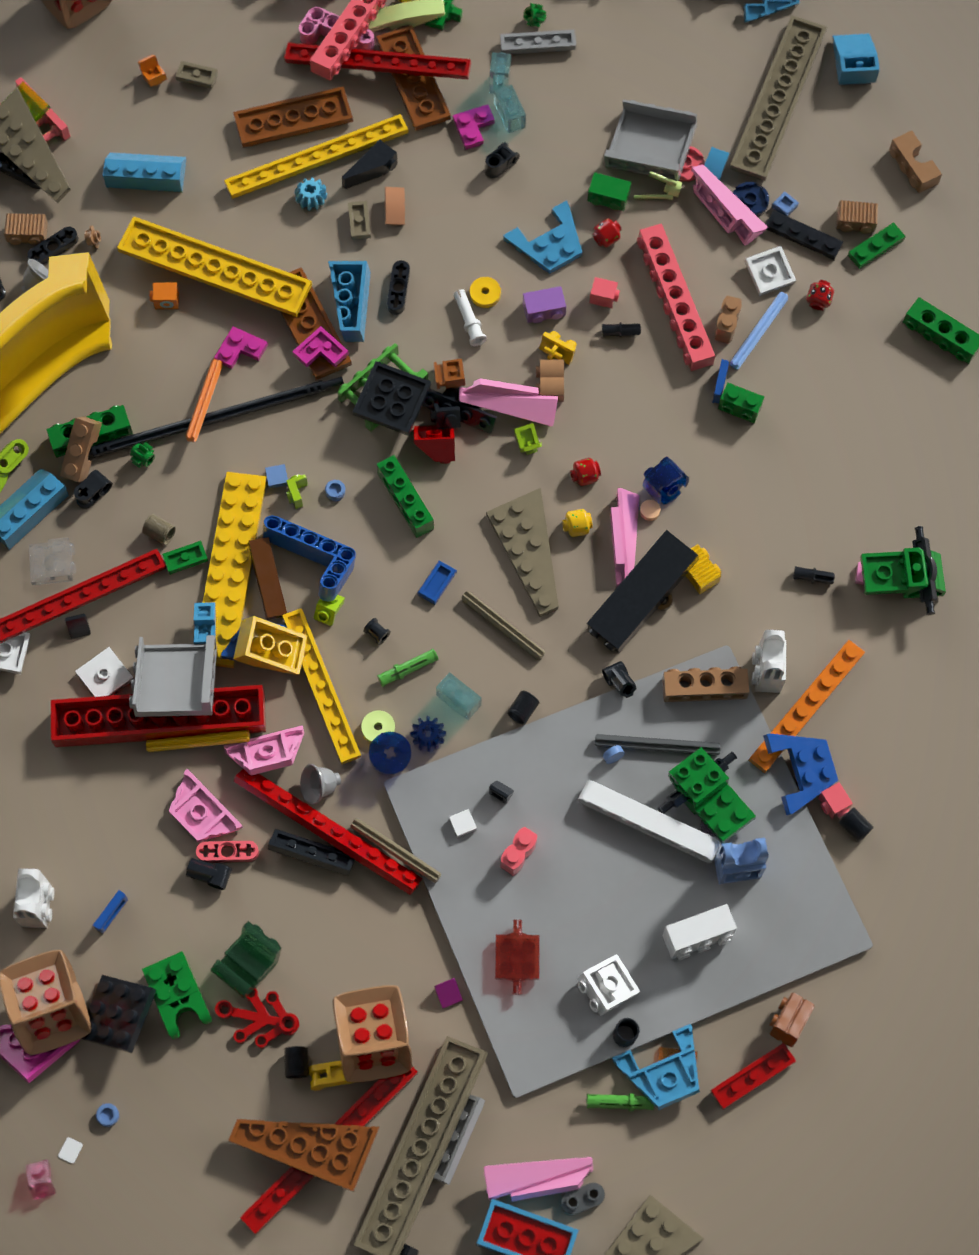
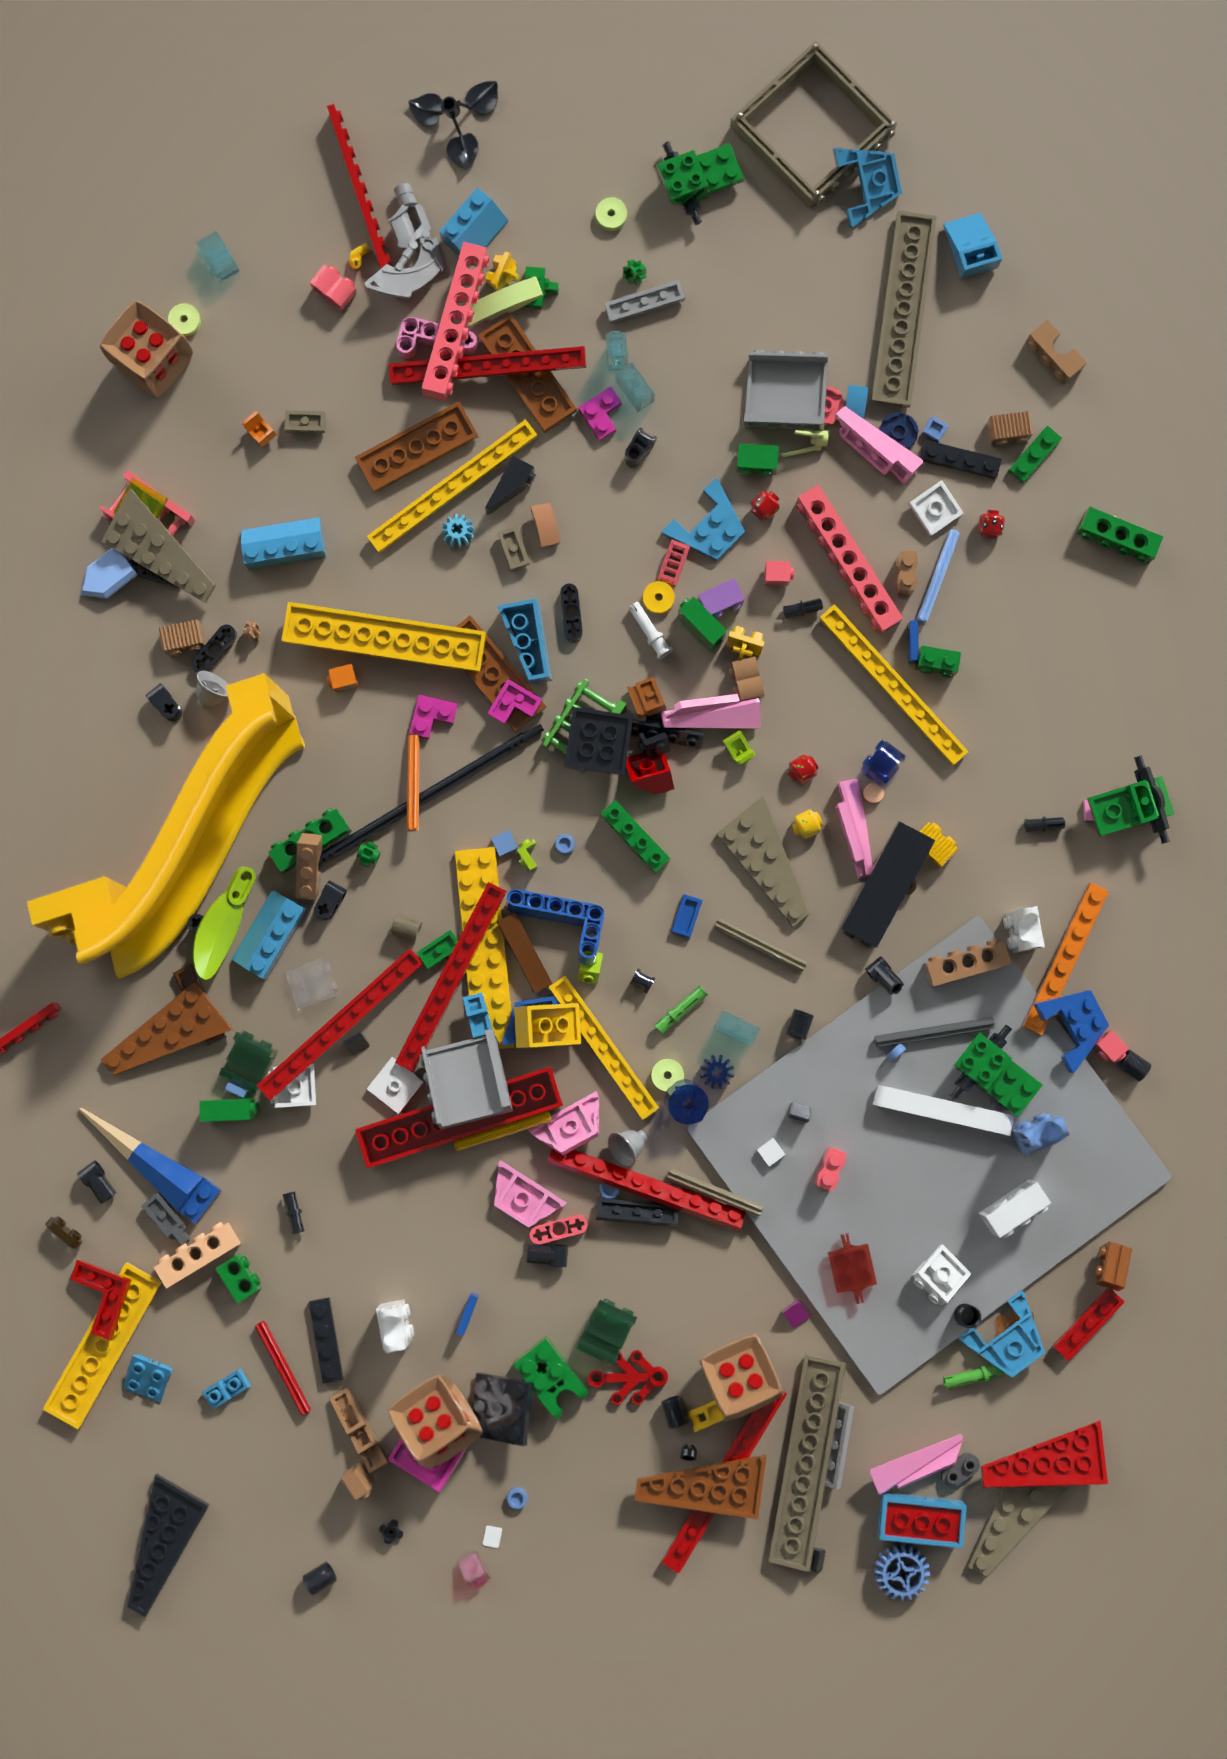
camera: 15 degrees left, 15 degrees up
(189, 581) = (451, 976): none -> red plate
(288, 825) = (608, 1191): none -> medium blue tile
(299, 1110) = (688, 1454): none -> black hinge
(512, 253) = (678, 546): none -> coral slope
(519, 319) = (701, 623): none -> green brick
(690, 1211) = (1061, 1461): none -> red wing
(693, 417) = (893, 685): none -> yellow plate

